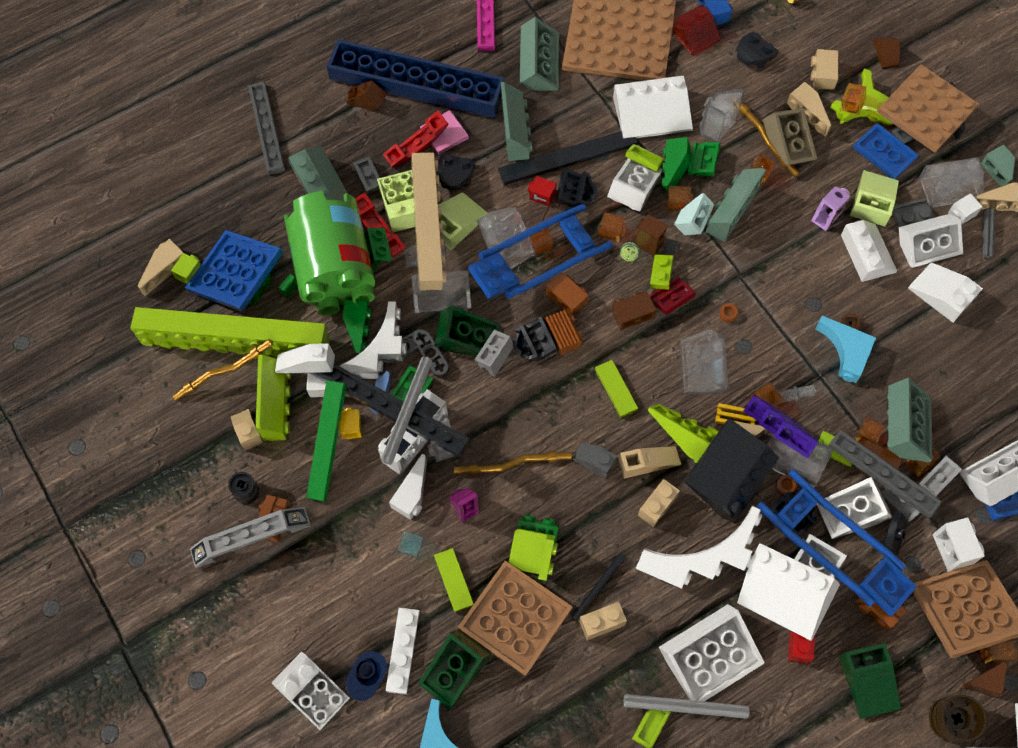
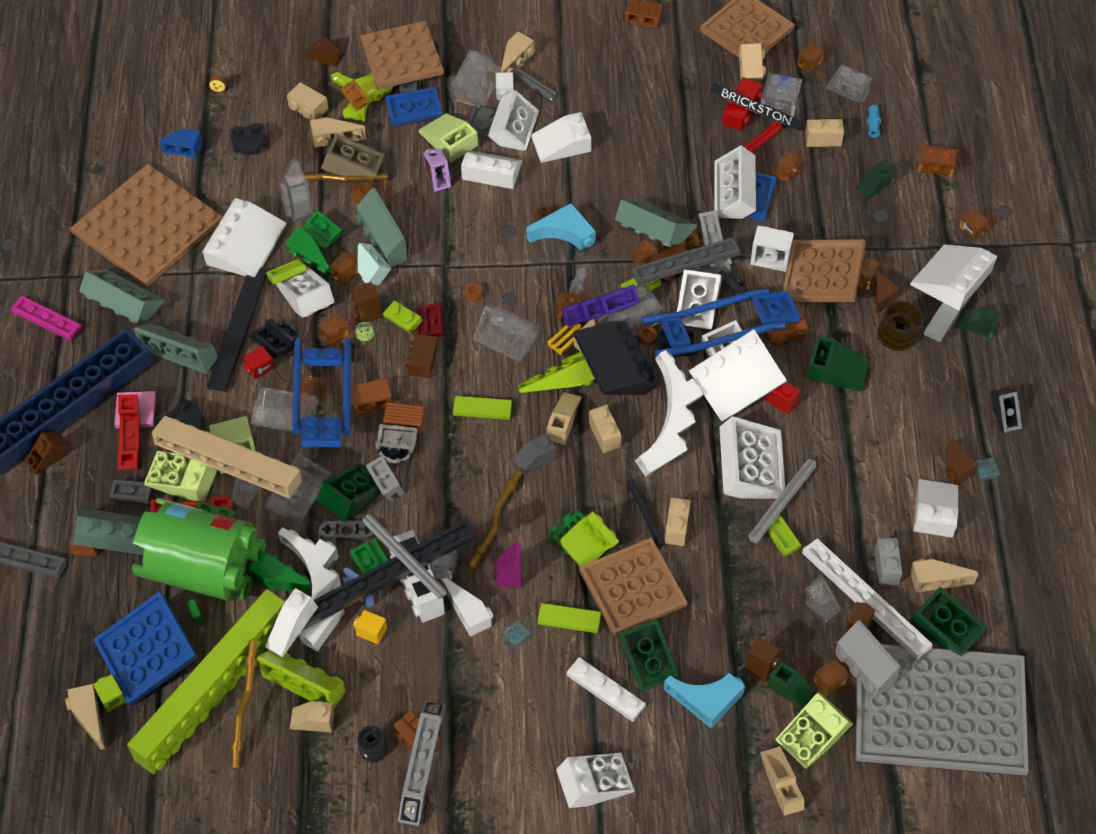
camera: 60 degrees left, 10 degrees down
(326, 440) = (377, 648): green tile -> none
(366, 675) = (610, 723): dark blue piece -> none
(696, 29) = (194, 167): clear red slope -> none
(1000, 165) = (486, 42): sand green slope -> none

